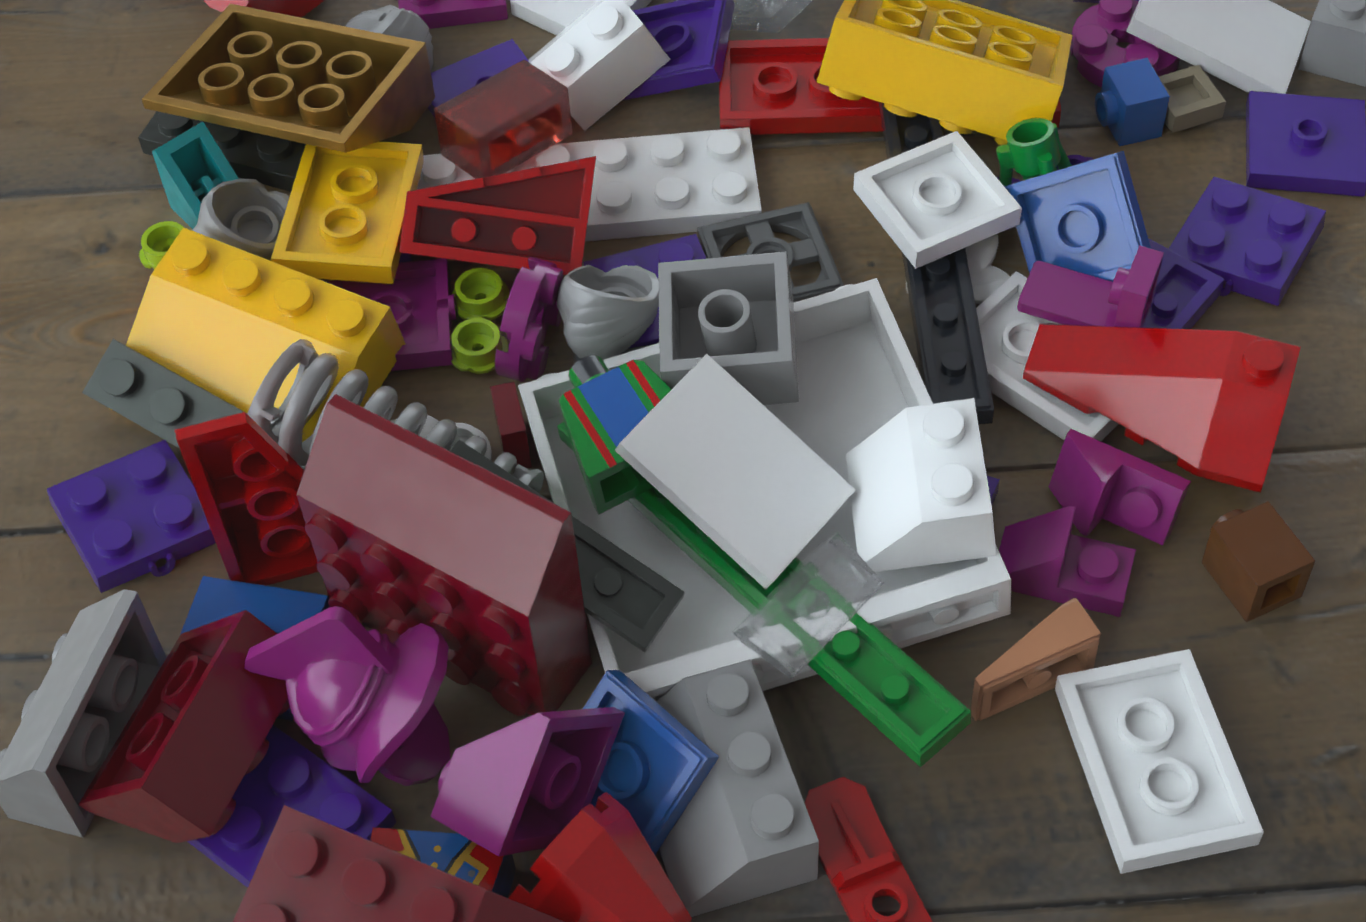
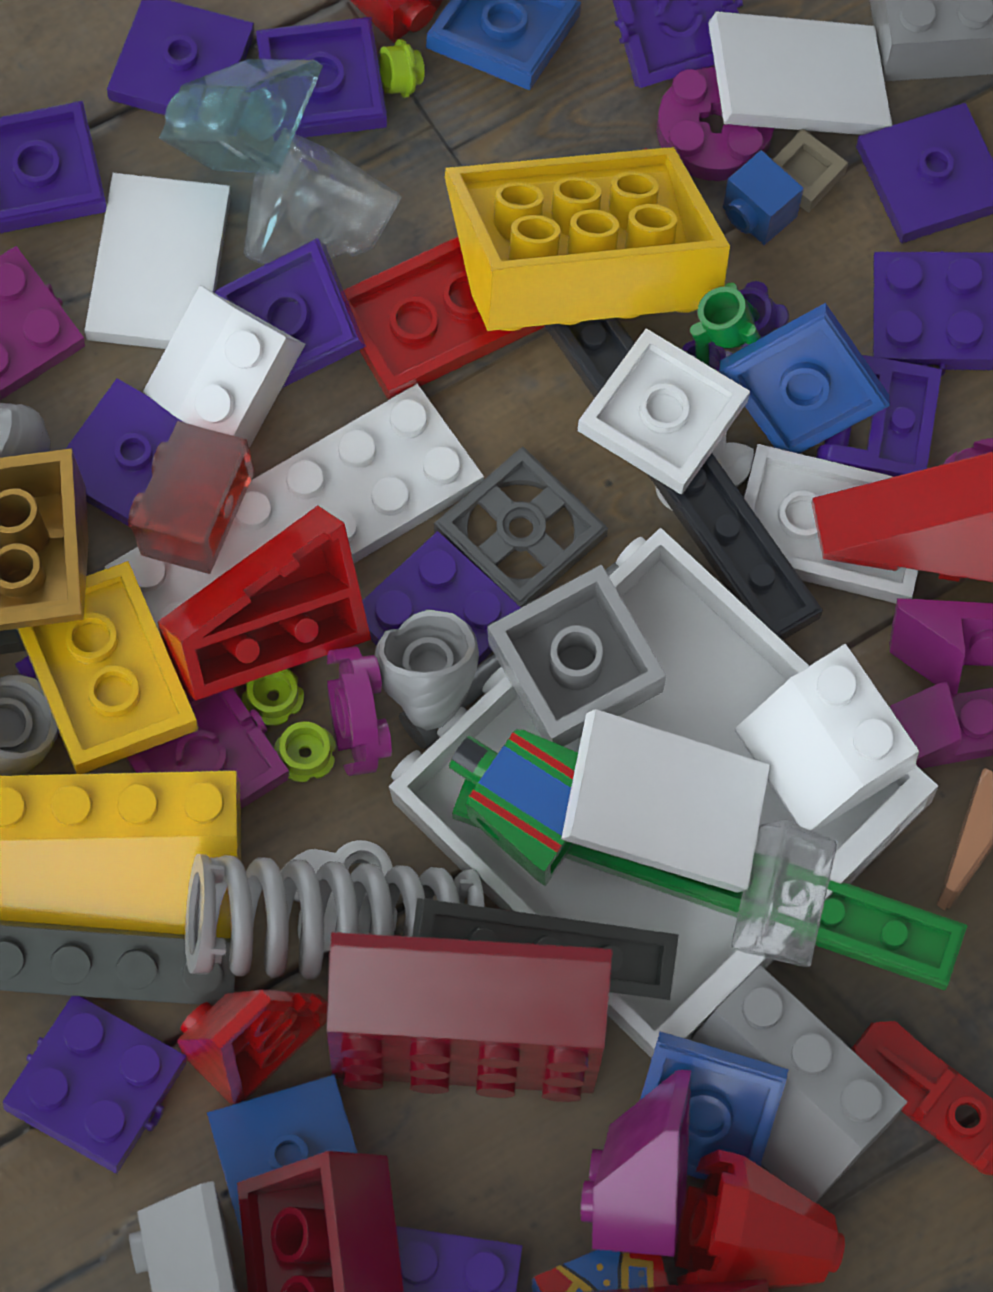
camera: 35 degrees left, 15 degrees up
(363, 694) = (468, 1163): magenta helmet -> none
(510, 422) = (394, 824): dark red tile -> none
(1090, 301) = (850, 453): magenta bracket -> none

